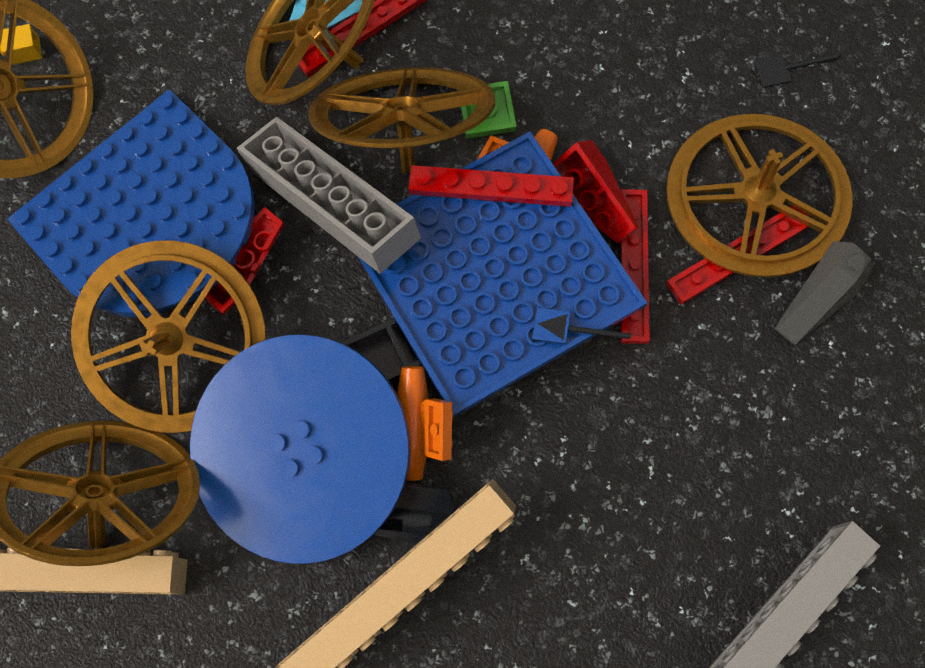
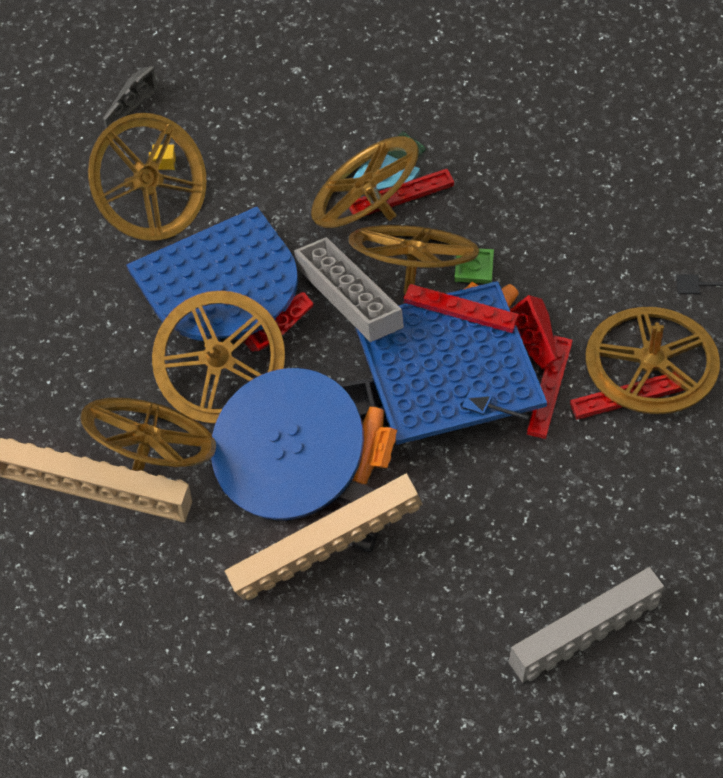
camera: 15 degrees right, 15 degrees down
(827, 289) = (685, 429): dark grey wedge -> none

